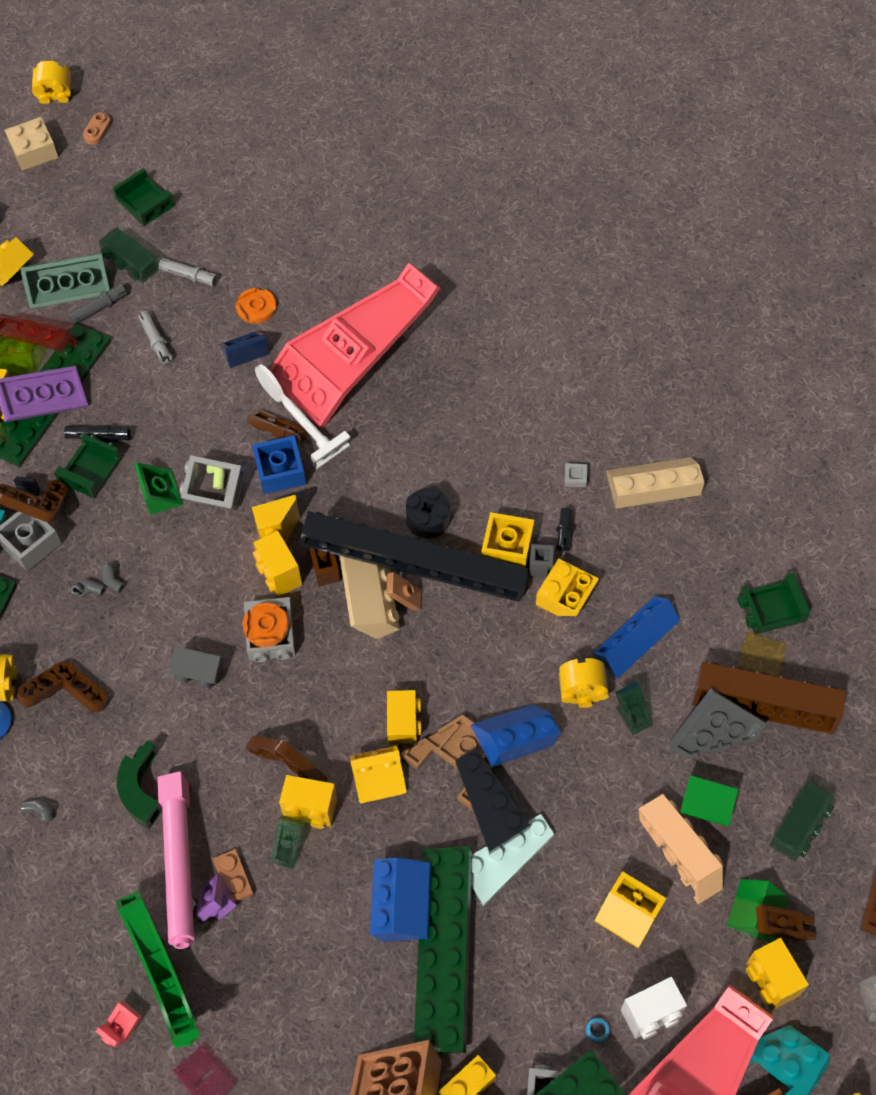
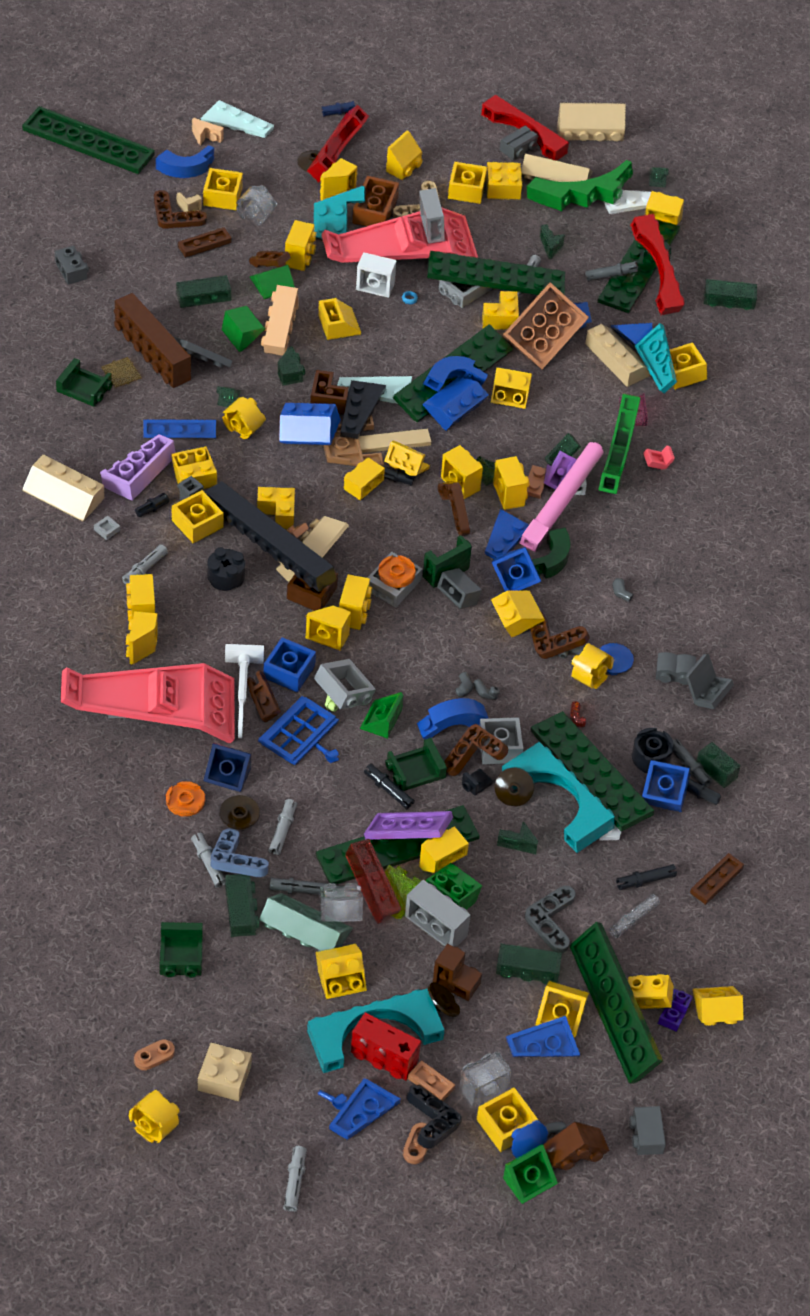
camera: 145 degrees left, 10 degrees down
(44, 298) = (341, 902): none -> clear brick
(84, 526) = (450, 713): none -> blue arch
(117, 683) = (517, 611): none -> yellow slope
(159, 727) = (516, 570): none -> blue slope
(170, 272) = (227, 861): none -> sand blue beam
(171, 424) = (331, 756): none -> blue hand
(198, 313) = (239, 805): none -> dark brown dish
(209, 779) = (505, 534): none -> blue wing
(230, 933) = (567, 445): none -> clear green slope
(231, 659) = (453, 559): none -> dark green panel
(240, 425) = (310, 742): none -> blue piece
(246, 830) = (510, 482): none -> yellow brick
(364, 986) = (511, 387): none -> yellow slope
(422, 802) = (381, 442): none -> tan tile
(426, 388) = (142, 637): none -> yellow slope
(438, 931) = (453, 368): none -> blue arch
(448, 622) = (278, 503): none -> yellow brick
(460, 418) = (141, 594): none -> yellow brick
(503, 461) = (149, 561): none -> light grey pin
(542, 785) = (326, 393): none -> reddish brown brick
(612, 796) = (289, 368): none -> clear green slope
(613, 549) = (139, 468): none -> lavender wedge

